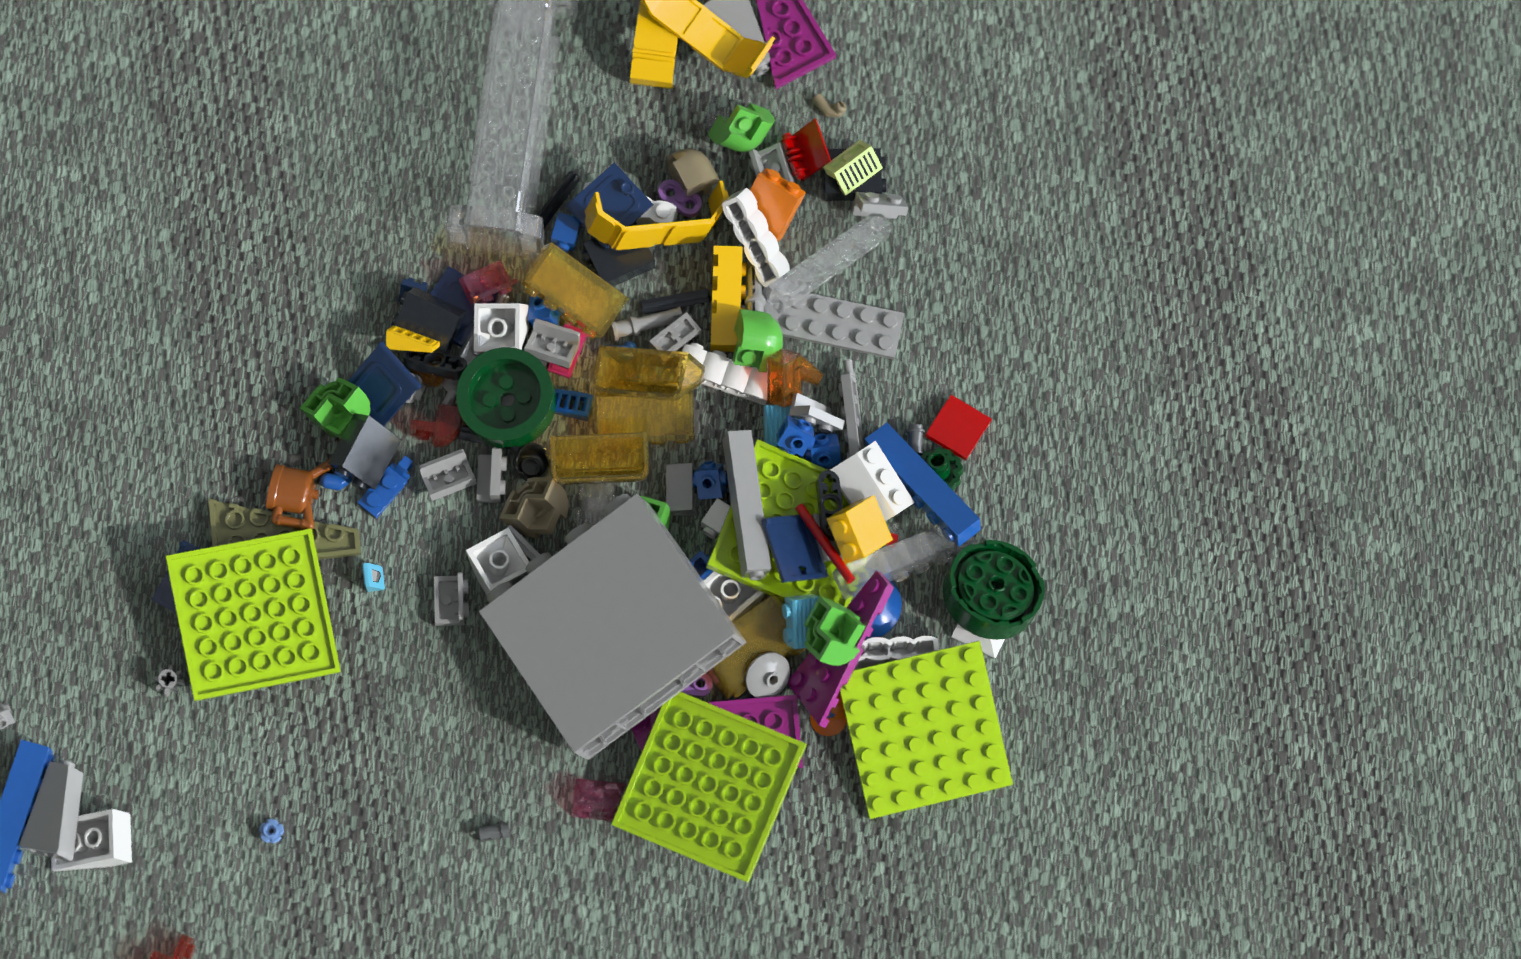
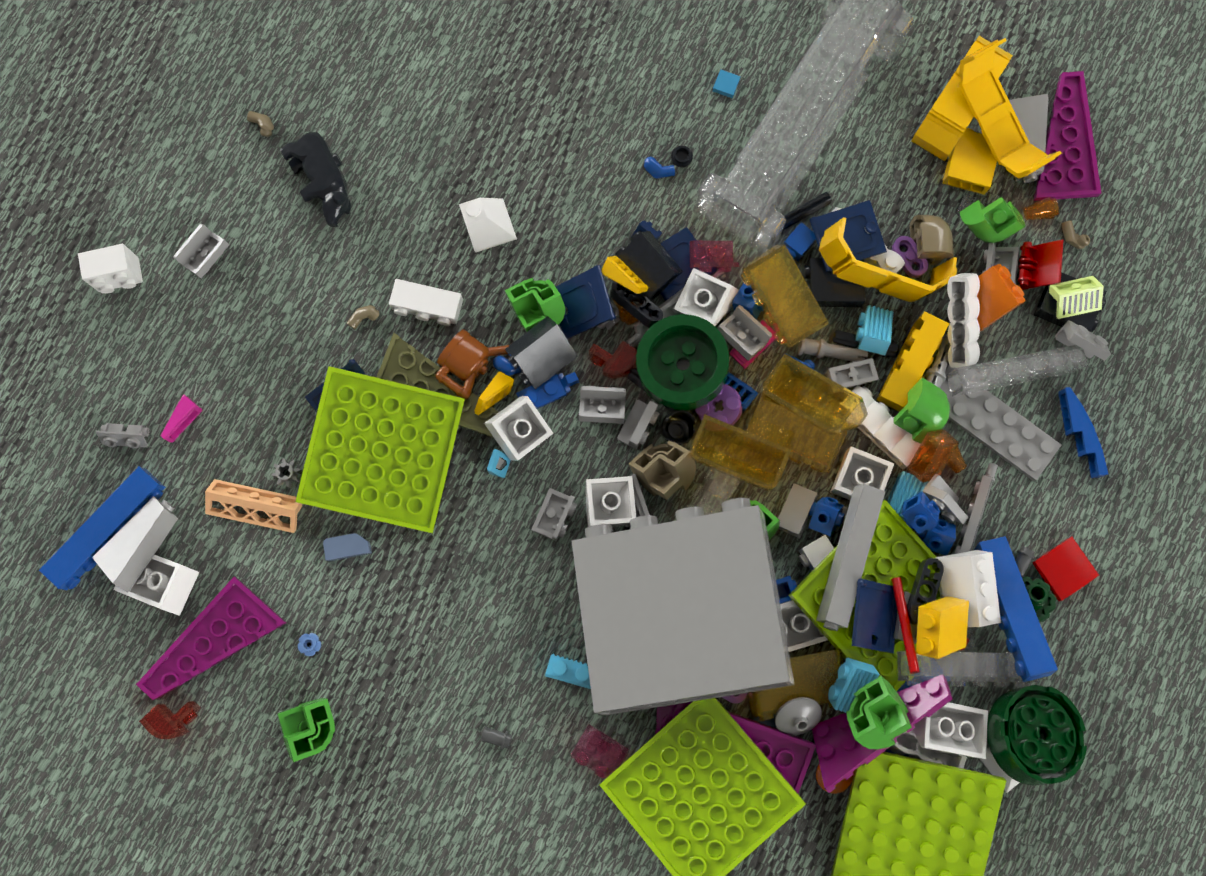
camera: 30 degrees right, 5 degrees up
(38, 673) = (181, 418): none -> dark pink slope
(59, 374) = (323, 170): none -> black animal
(147, 720) = (251, 501): none -> light nougat fence
(167, 494) = (362, 313): none -> dark tan arm
(179, 856) = (219, 631): none -> magenta wing
(226, 455) = (425, 302): none -> white brick
(249, 351) = (487, 223): none -> white slope
(262, 724) = (345, 547): none -> sand blue piece
(309, 904) = (307, 728): none -> bright green brick
(337, 509) = (495, 391): none -> yellow slope
(377, 533) = (518, 428): none -> white brick
(392, 223) = (657, 170): none -> blue arm
(411, 199) = (681, 156): none -> black plate
(421, 107) = (726, 83): none -> dark azure tile
(535, 737) = (568, 671): none -> medium azure brick
(571, 415) = (731, 404): none -> medium lavender plate
(677, 283) = (875, 330): none -> medium azure brick
(697, 81) = (970, 164): none -> yellow brick
(723, 418) = (860, 468): none -> white brick
(786, 95) = (1043, 209): none -> clear orange cone
(912, 287) = (1079, 424): none -> blue slope
(913, 618) = (955, 730): none -> white slope

